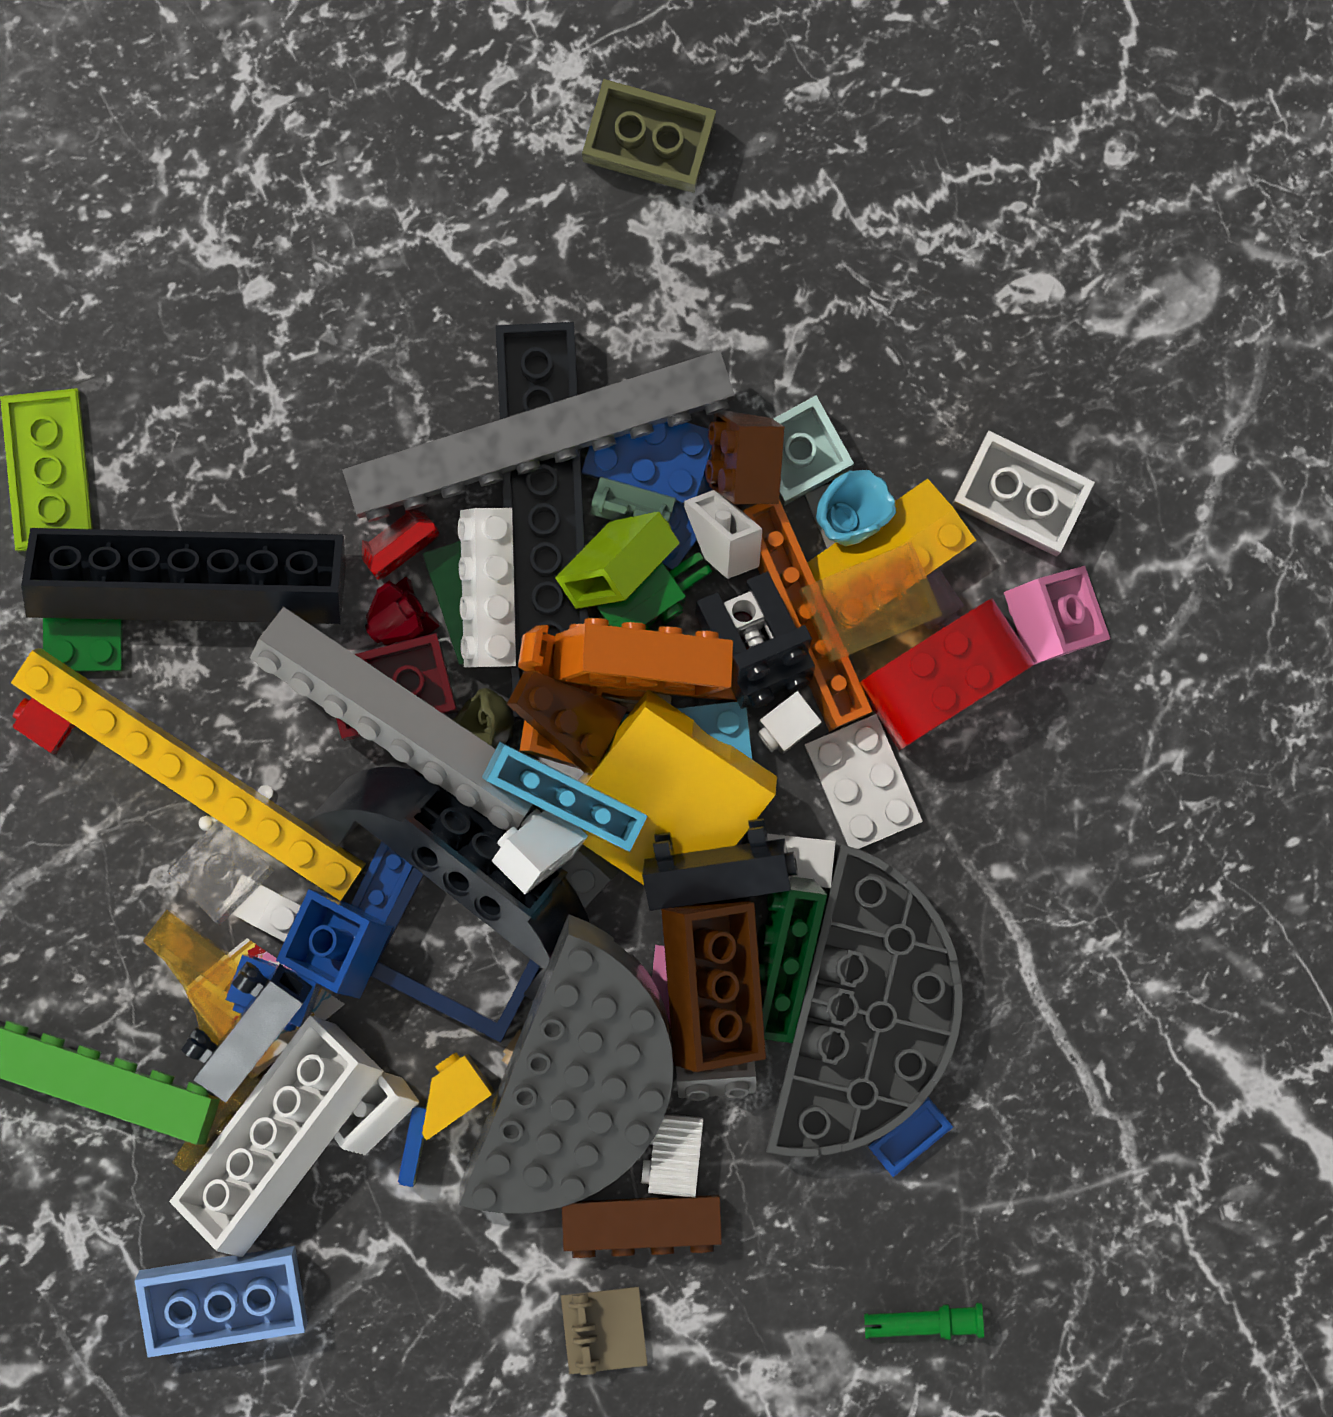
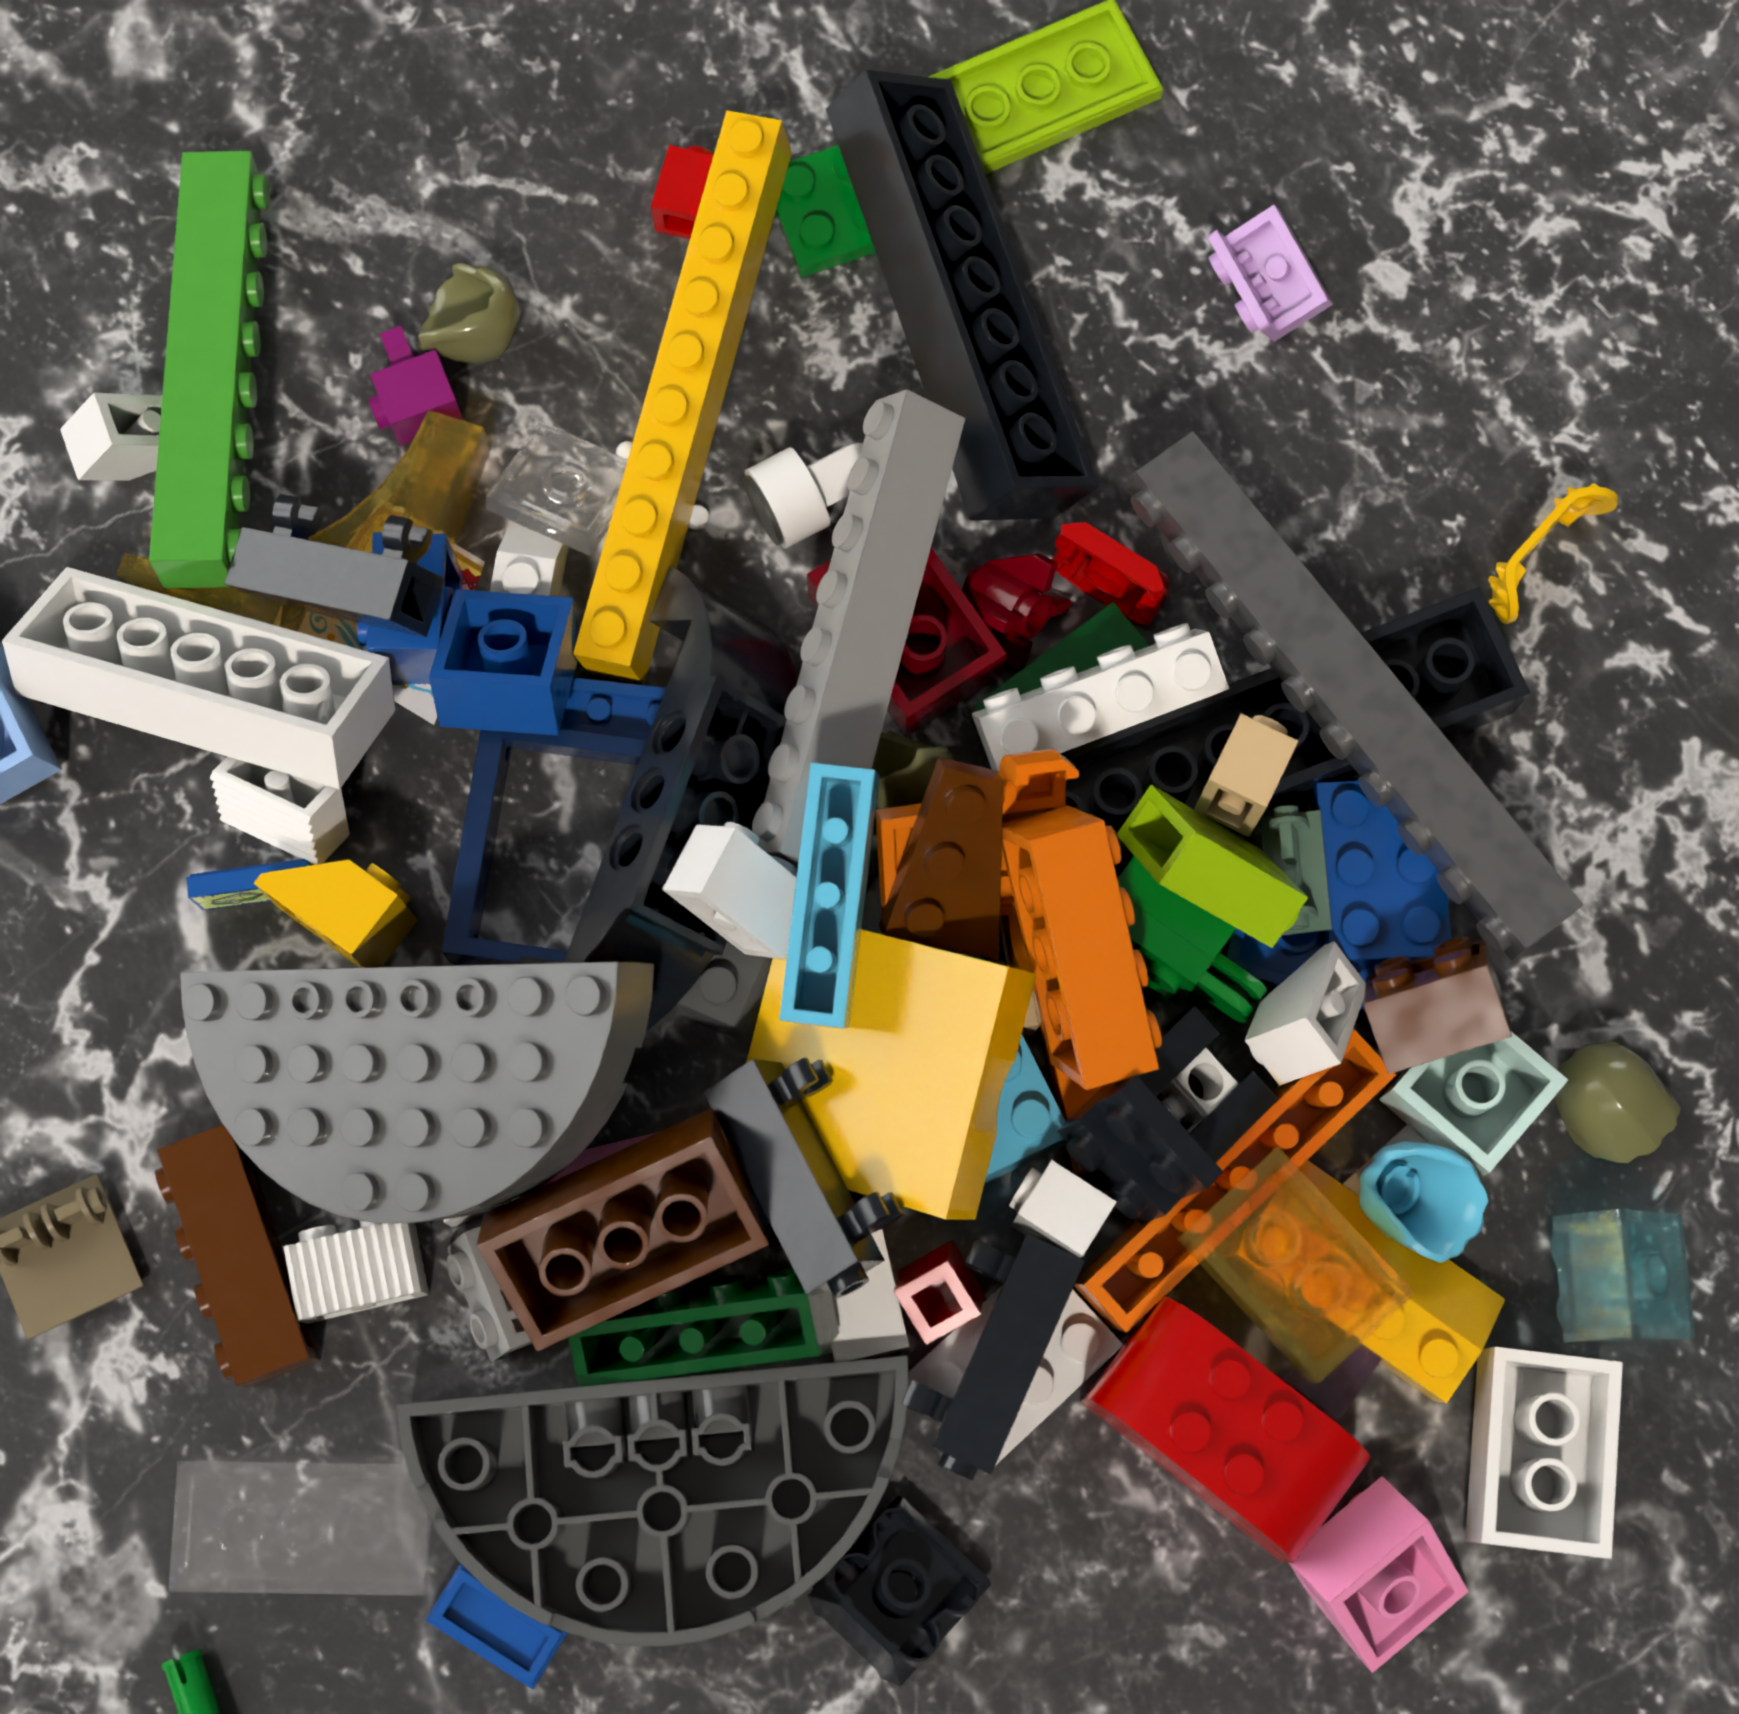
camera: 70 degrees right, 10 degrees down
(82, 895) = (471, 316): none -> olive hair
(86, 1144) = (114, 436): none -> white slope
(121, 948) = (409, 389): none -> magenta brick
(233, 370) = (1269, 274): none -> lavender bracket
(281, 725) = (793, 496): none -> white piece
(488, 298) = (1578, 502): none -> yellow piece
(570, 519) = (1247, 773): none -> tan brick
(809, 811) = (939, 1292): none -> red brick
(814, 1235) = (298, 1529): none -> clear tile
(835, 367) = (1614, 1103): none -> olive hair
(861, 787) = (1005, 1356): none -> black brick
(939, 404) = (1622, 1277): none -> clear light blue slope
(971, 895) = (898, 1591): none -> black slope

